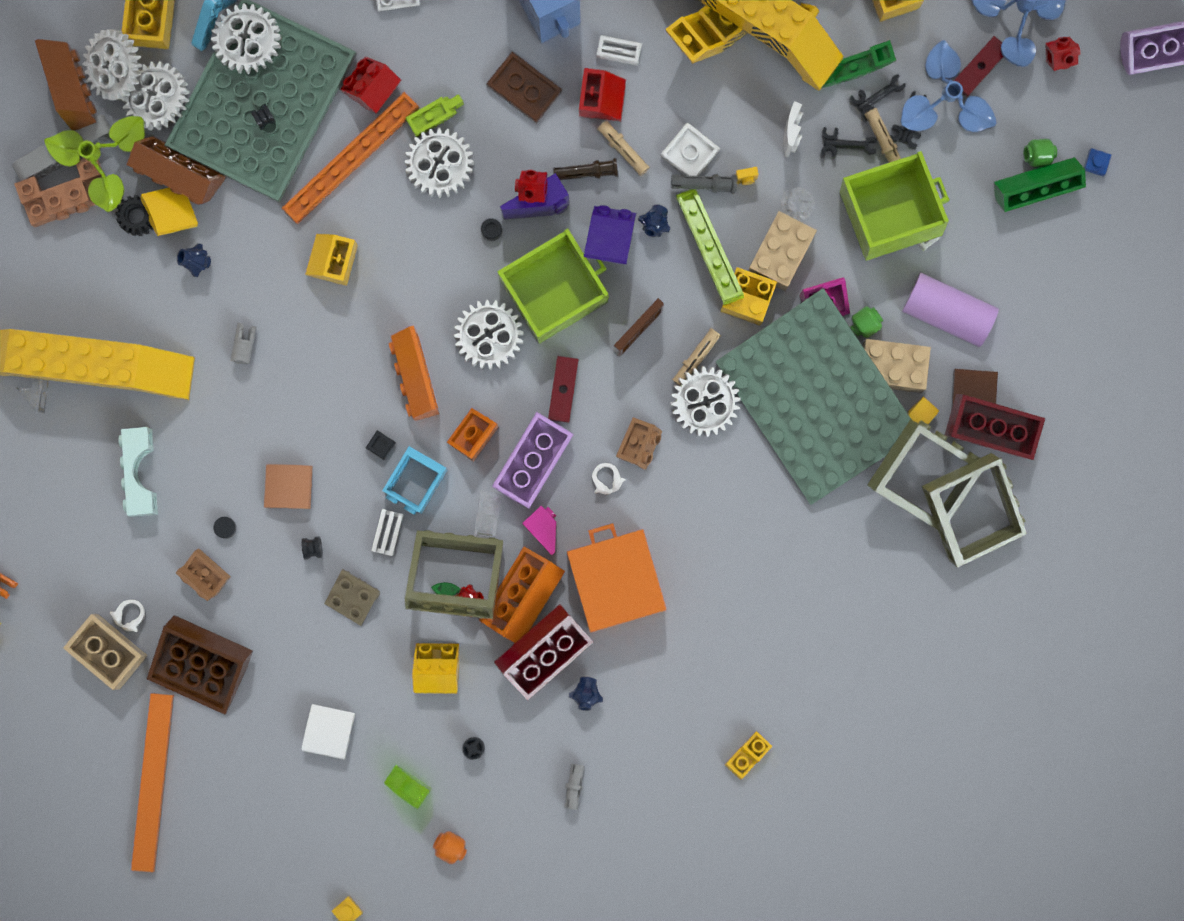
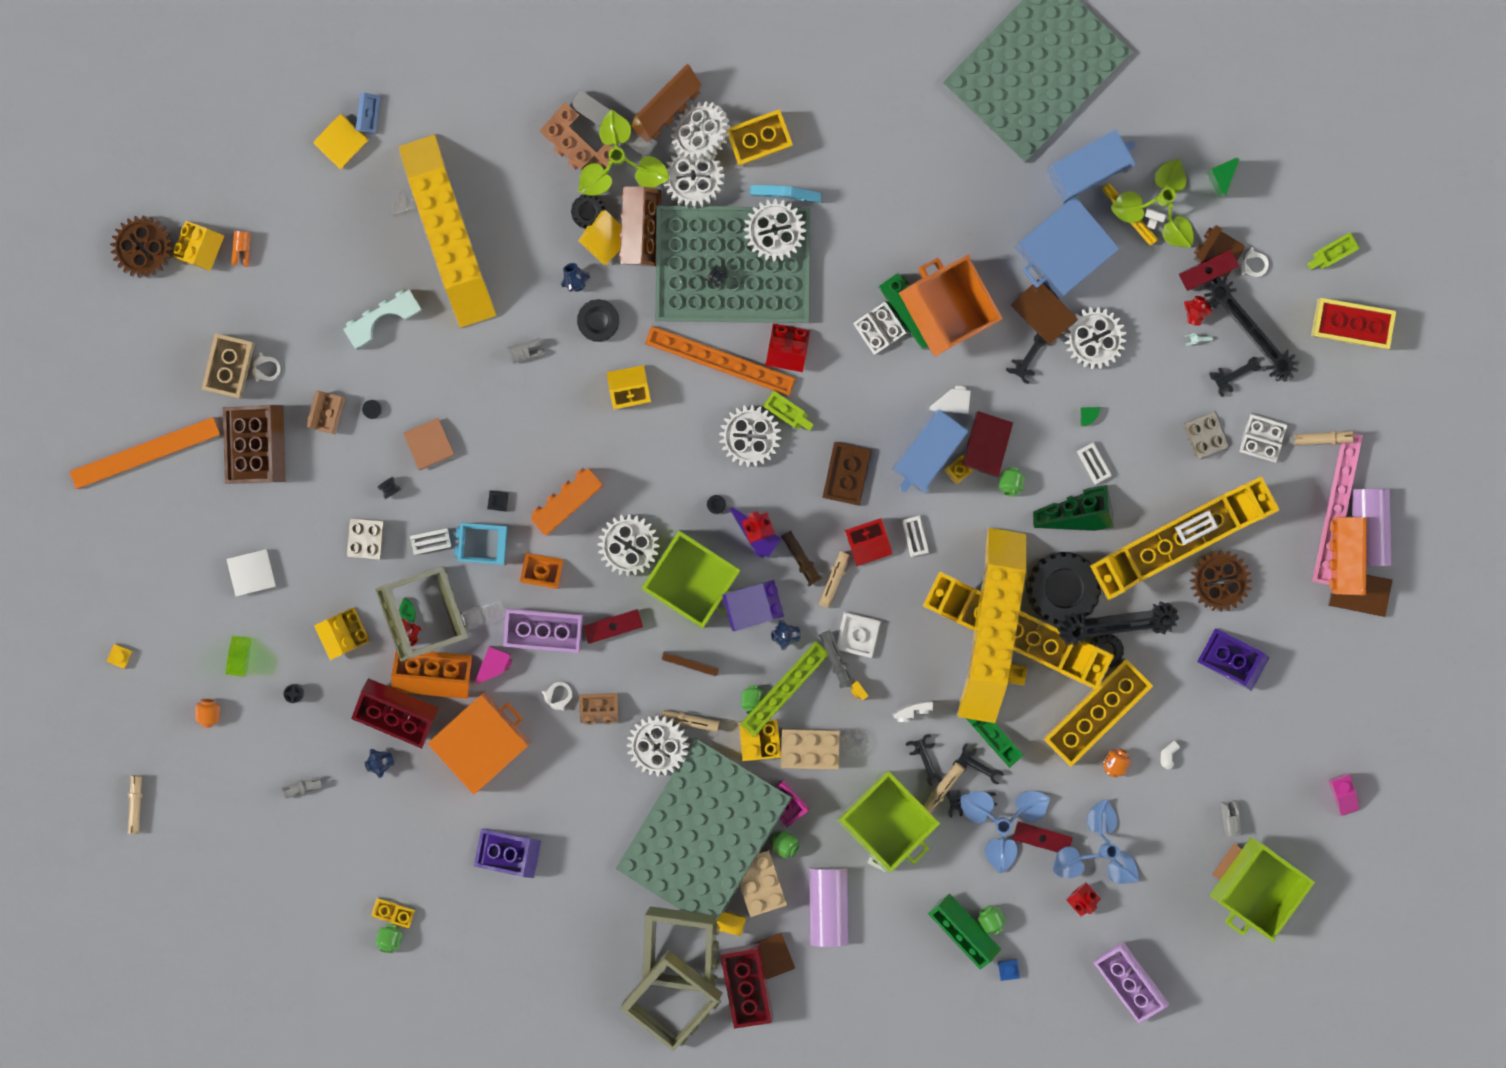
camera: 60 degrees right, 5 degrees up
(249, 241) = (583, 320): none -> black tyre
(703, 285) = (751, 697): none -> bright green head
(743, 607) = (507, 853): none -> dark purple slope
(773, 772) = (388, 939): none -> bright green head

